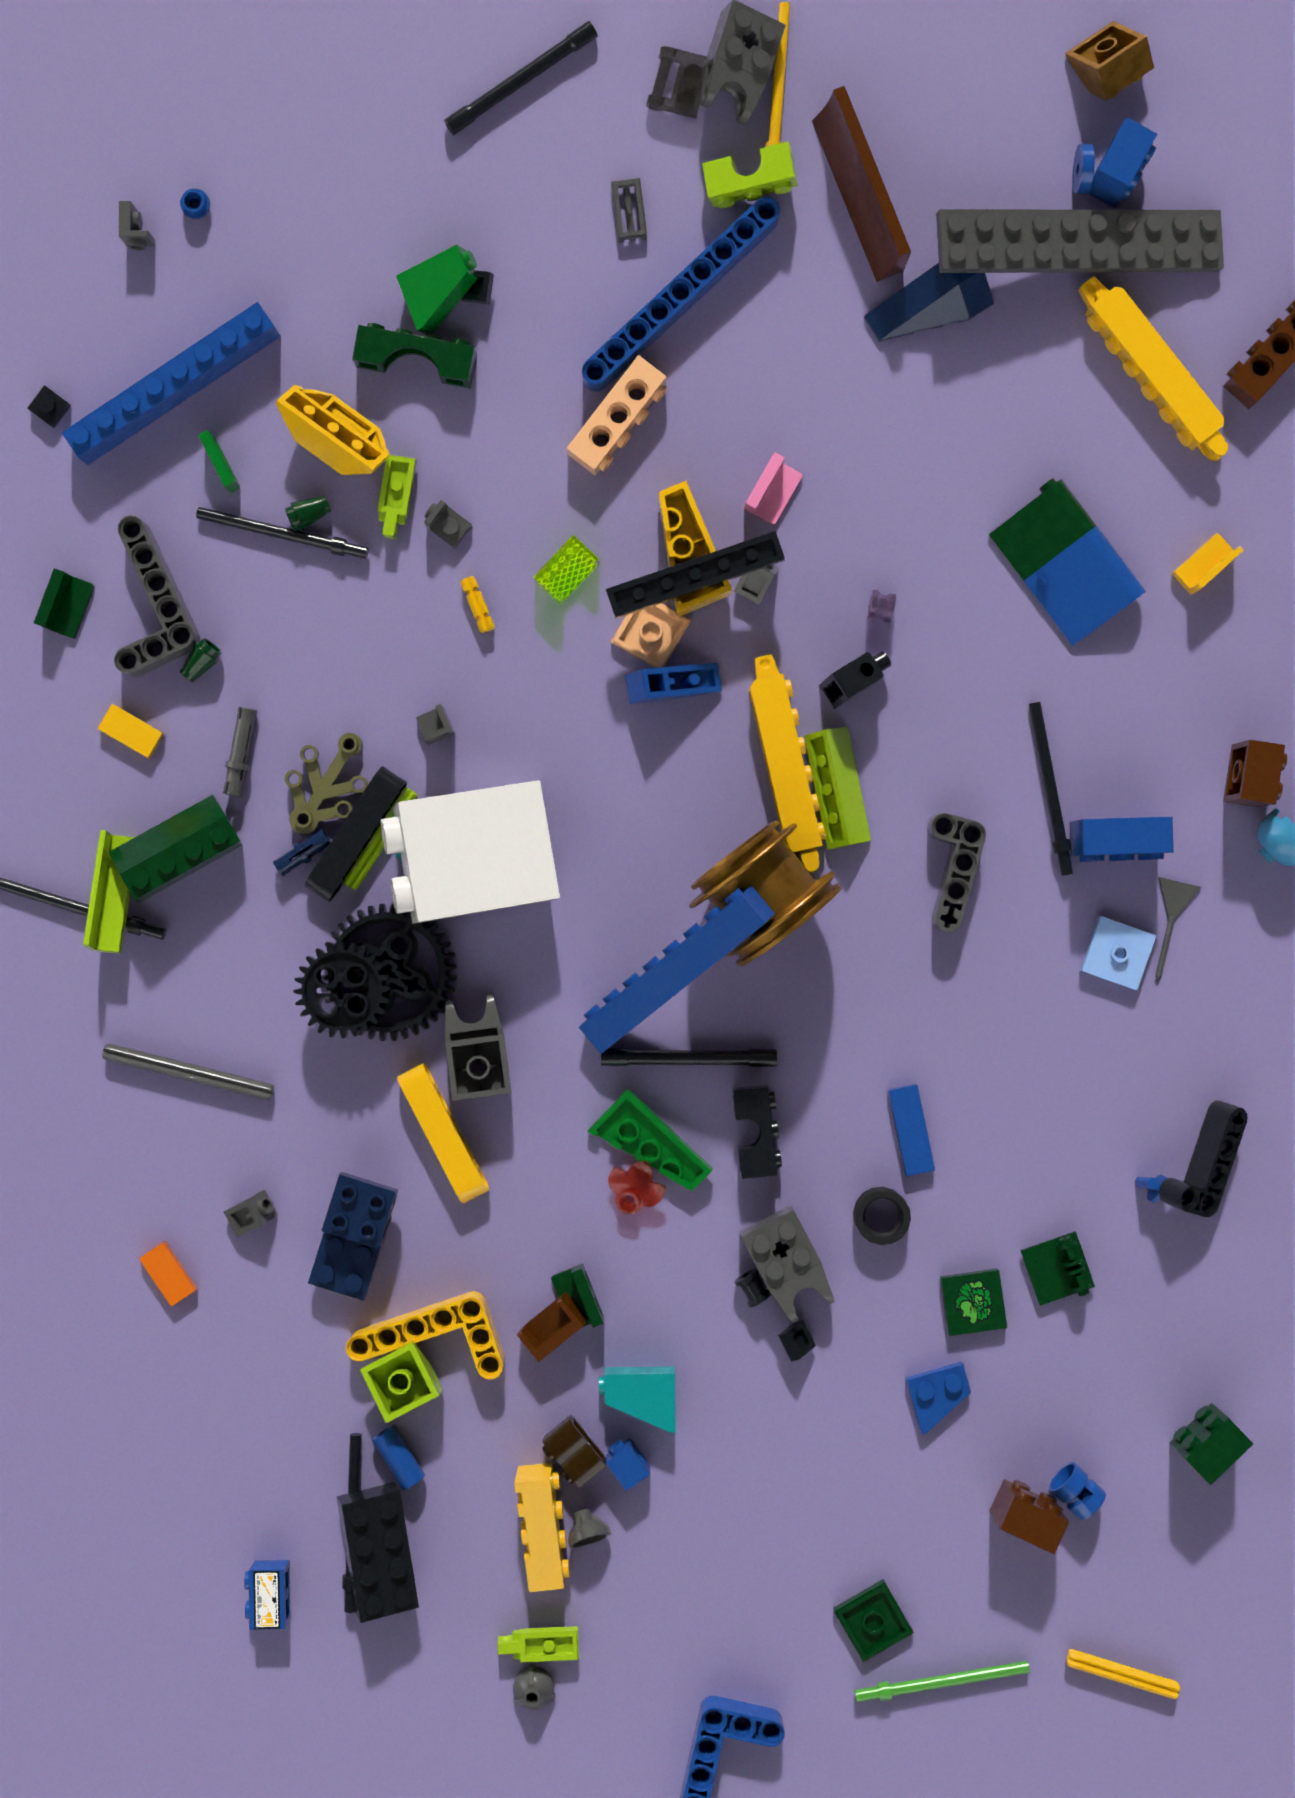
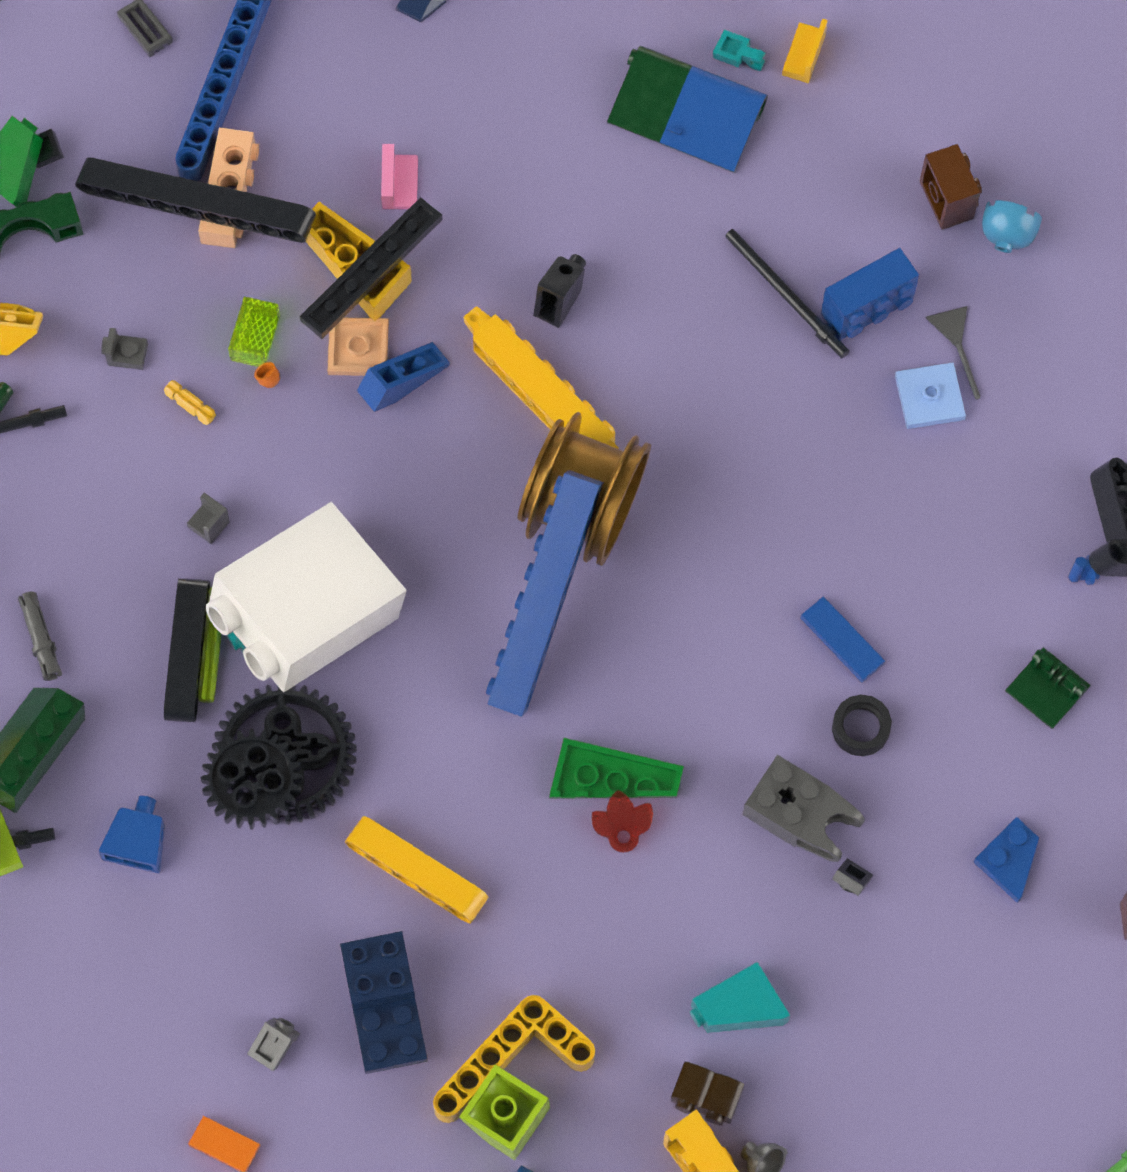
camera: 30 degrees left, 20 degrees down
(188, 1071) = (143, 946): dark grey axle -> none
(228, 977) = (135, 837): none -> blue torso
(286, 864) = (145, 692): dark blue pin -> none
(323, 787) = (135, 626): olive plant -> none
(396, 493) = (65, 348): lime hinge -> none
(476, 1041) = (400, 770): dark grey brick -> none
(552, 1326) = (619, 987): reddish brown panel -> none
(556, 616) = (267, 375): none -> orange hinge
(578, 419) = (196, 200): none -> black beam
(579, 1288) = (628, 952): dark green panel -> none
(627, 1057) = (546, 713): black piece -> none
(627, 1463) = (763, 1076): blue brick -> none
(752, 1287) = (783, 852): black bush -> none
(755, 584) = (427, 257): dark grey bracket -> none
(760, 1157) = (690, 690): black arch -> none
(837, 787) = (599, 386): lime panel -> none
(873, 1620) = (1081, 1098): dark green tile -> none
(881, 606) = (549, 221): clear purple wheel -> none
(952, 874) = (745, 403): dark grey beam -> none
(973, 1302) = (991, 758): dark green tile -> none
(1143, 527) = (735, 48): none -> teal plate

